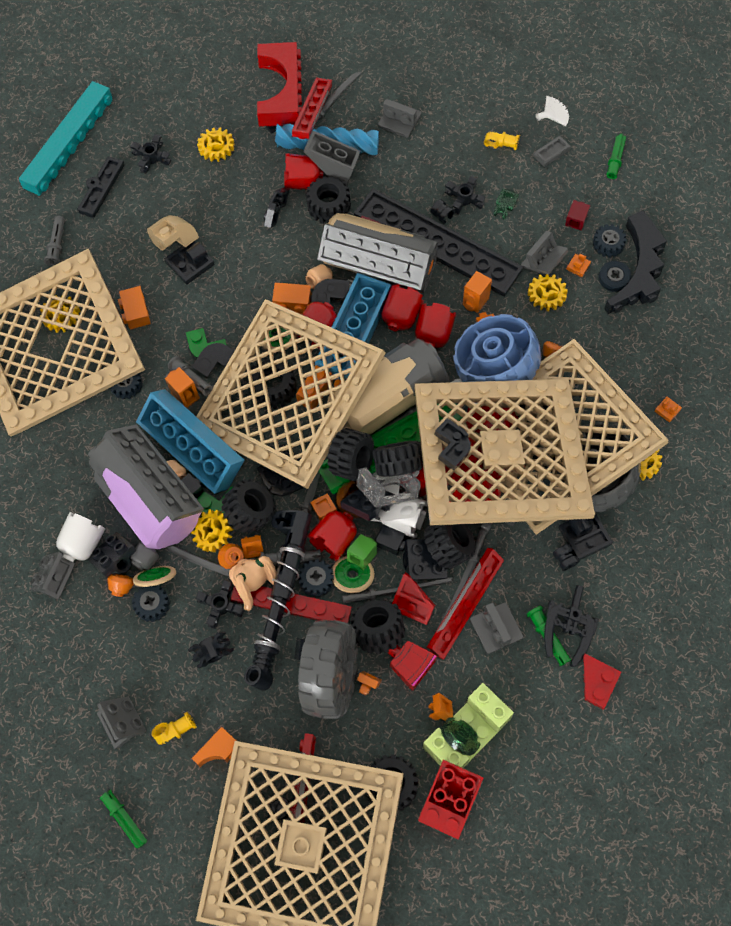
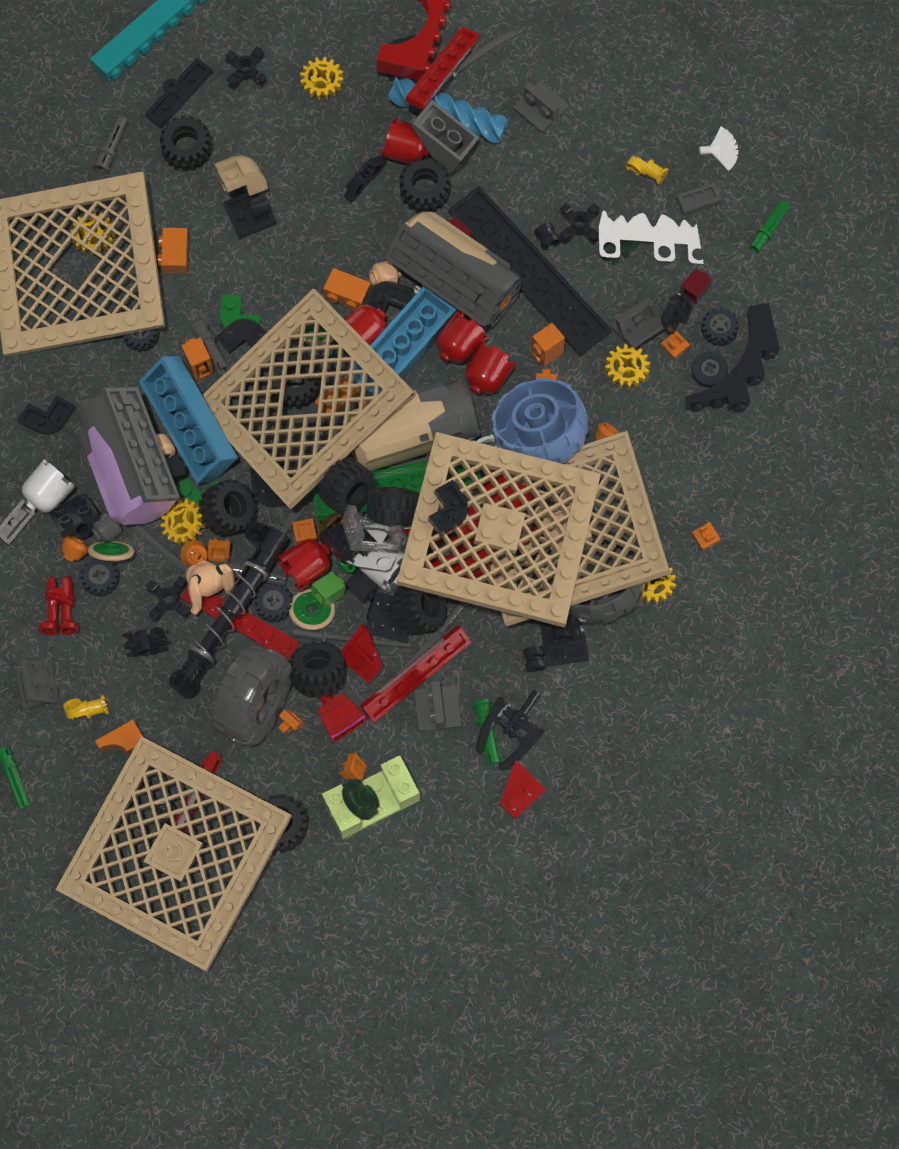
camera: 15 degrees right, 5 degrees up
(64, 480) = (48, 421): none -> black plate
(120, 232) = (188, 157): none -> black tyre
(123, 632) = (63, 597): none -> red piece
(371, 526) = (346, 567): none -> green arm
(450, 799) = (330, 854): red slope -> none
(534, 183) = (639, 229): none -> white piece
(573, 237) = (677, 311): none -> black plate

